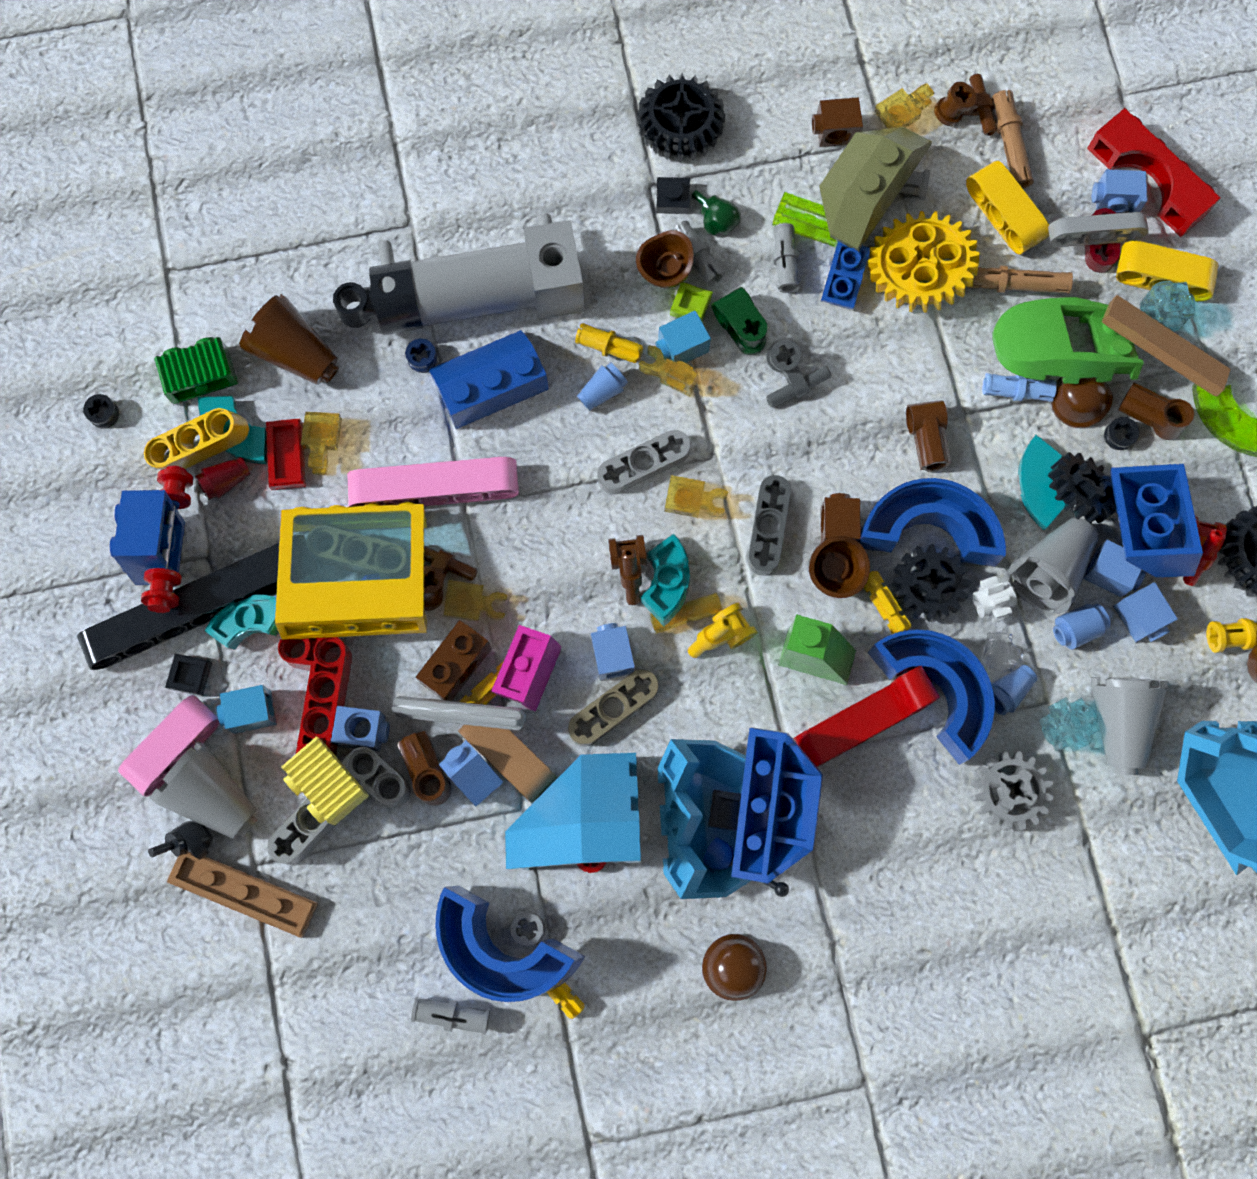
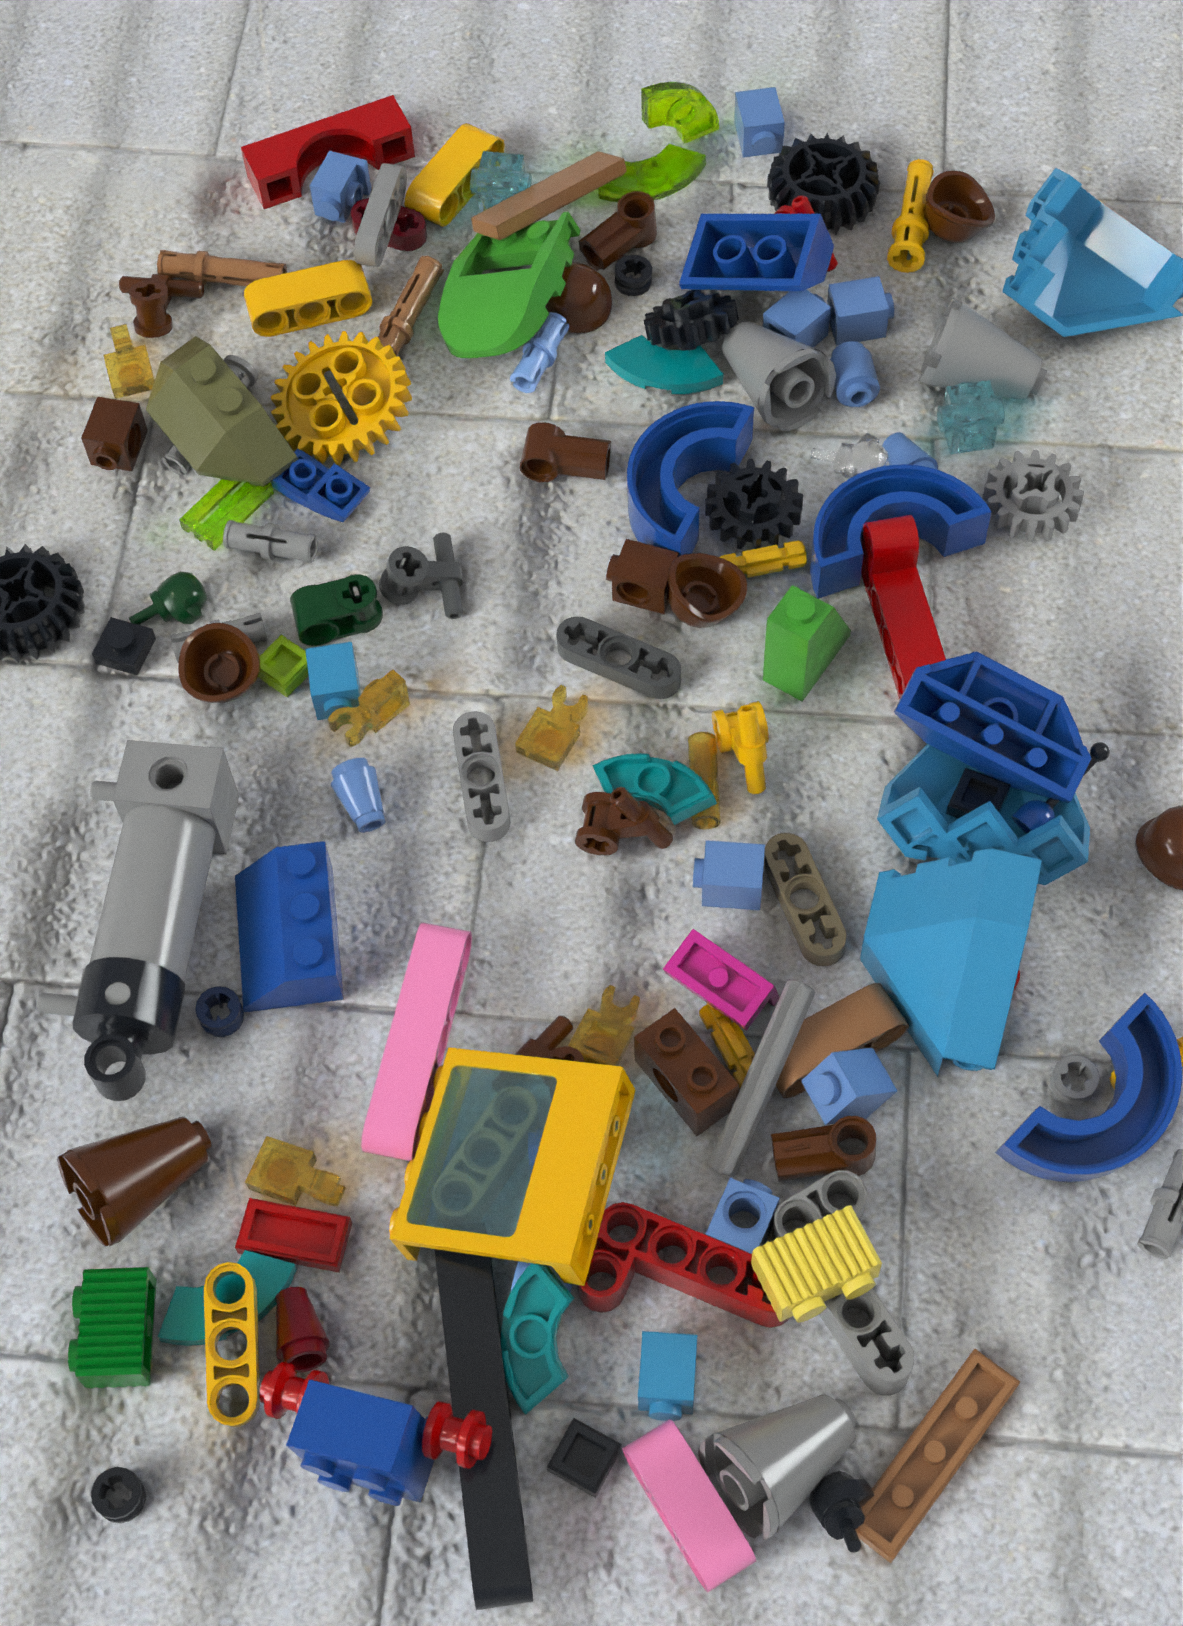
camera: 70 degrees left, 15 degrees down
(608, 343) = (301, 771): yellow axle -> none
(994, 599) = (795, 445): white gear -> none

